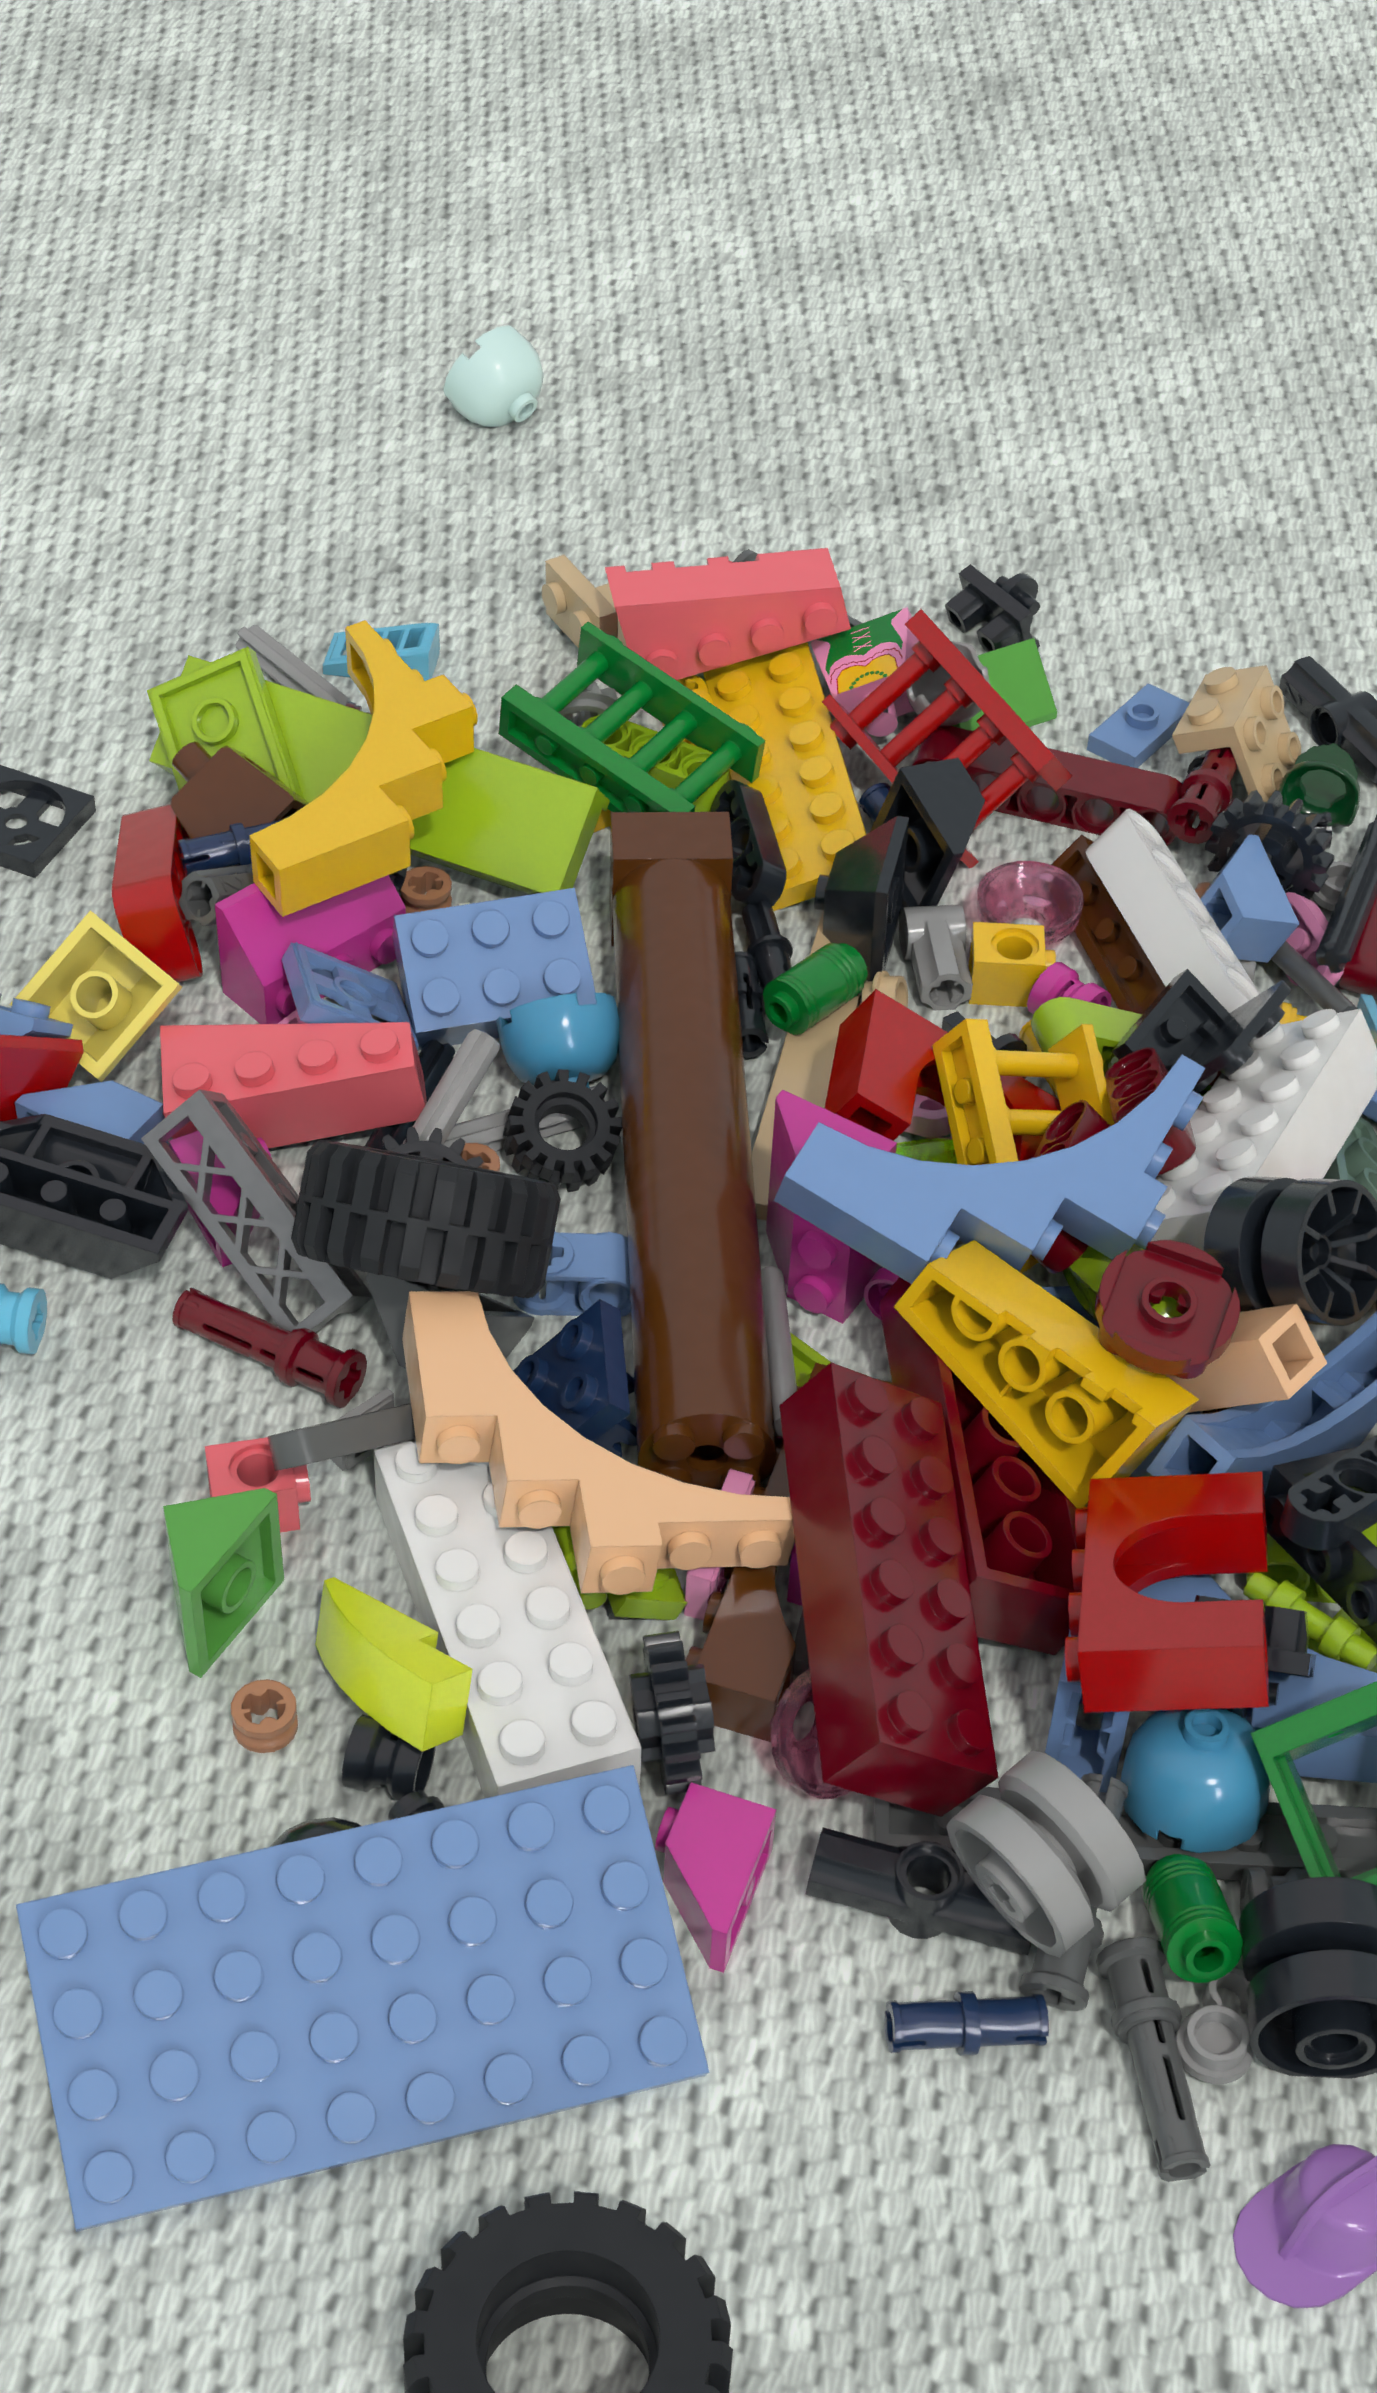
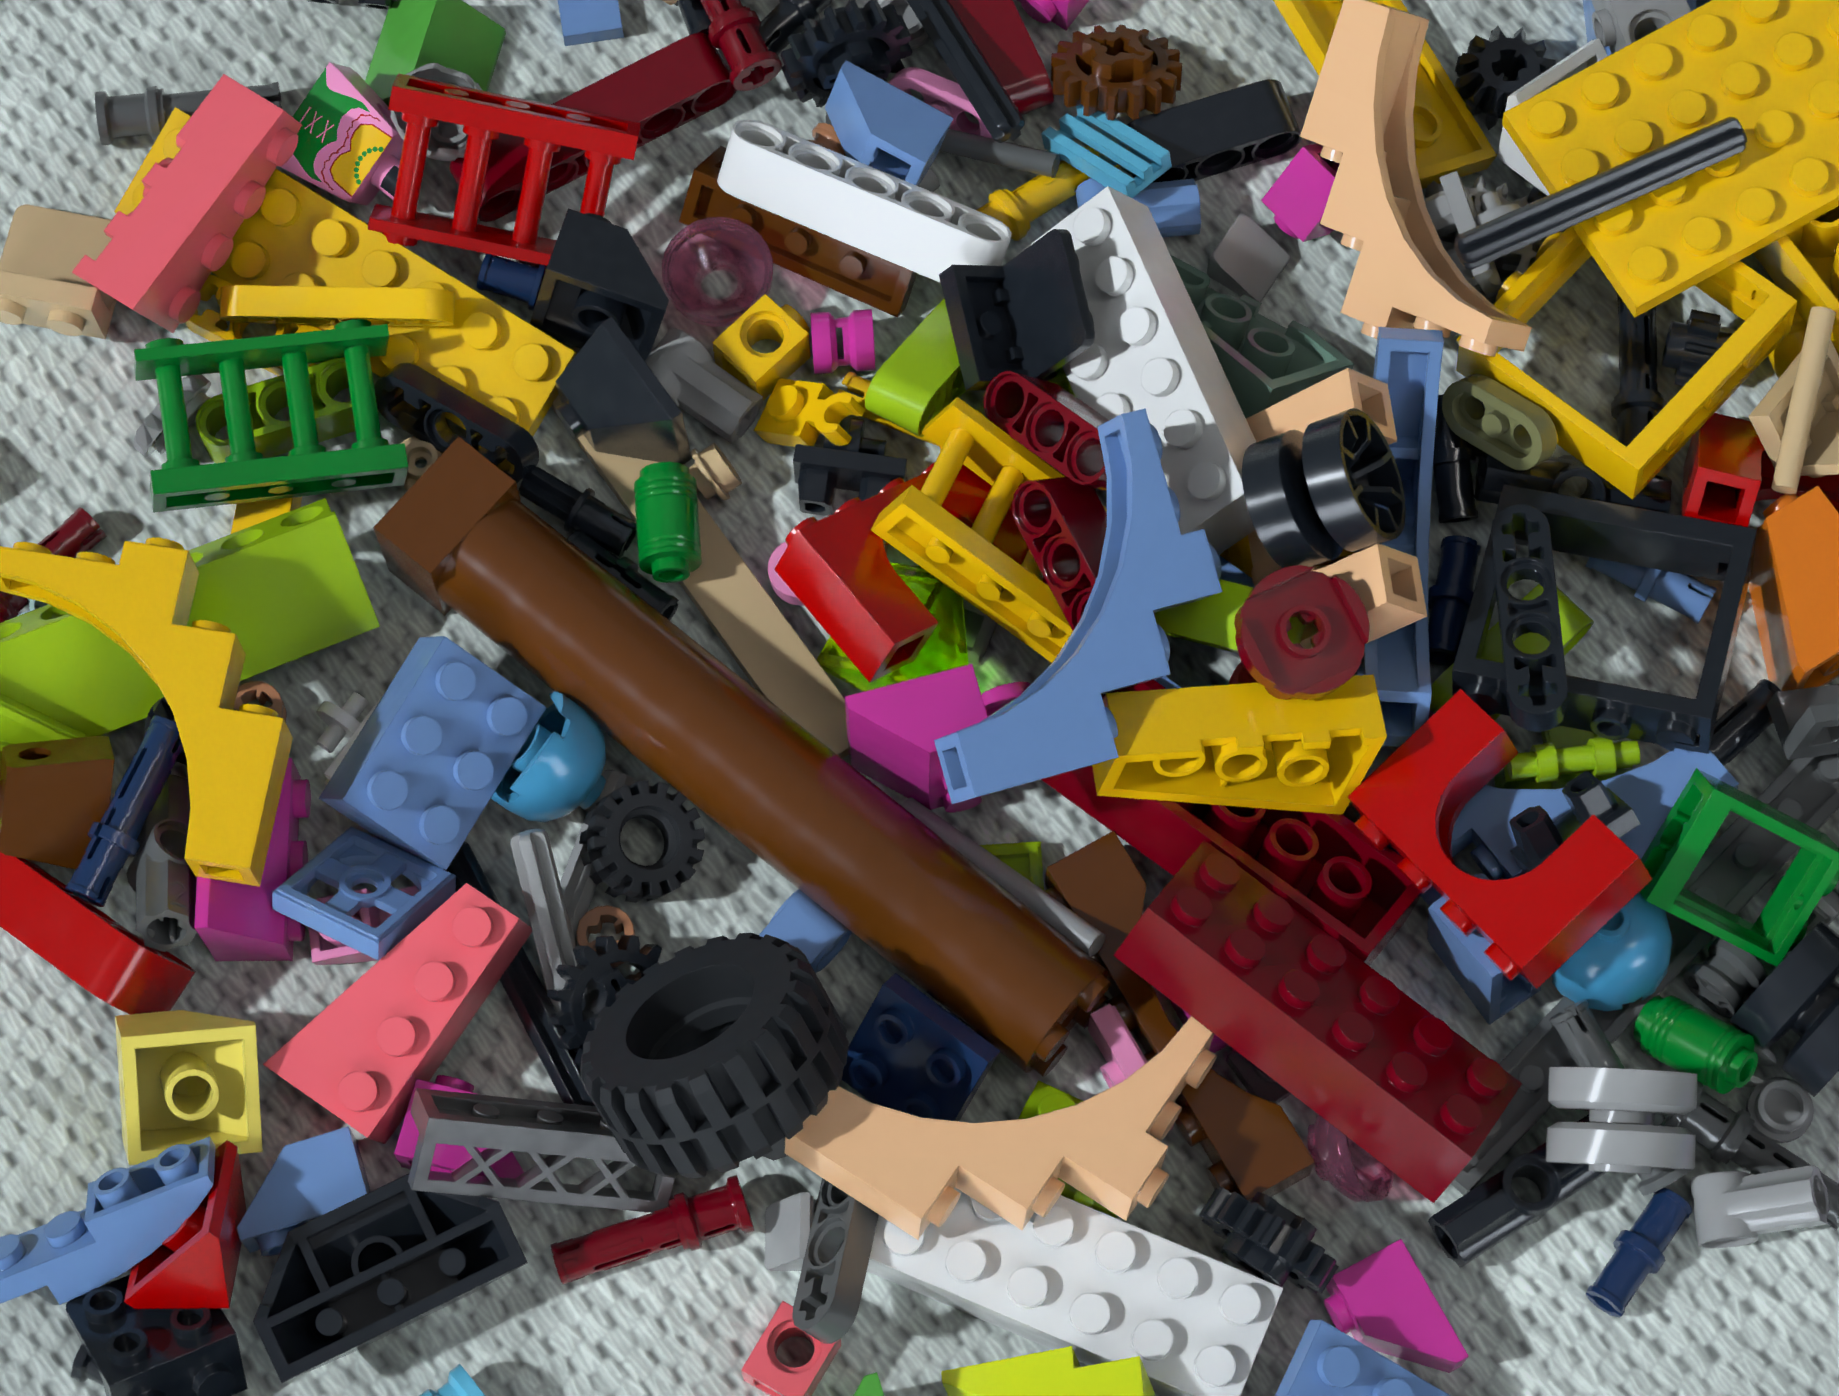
camera: 45 degrees left, 25 degrees up
(786, 746) = (337, 304): none -> yellow beam
(1000, 1010) = (802, 411): none -> yellow plate
(1094, 2067) = (1738, 1206): none -> light grey piece

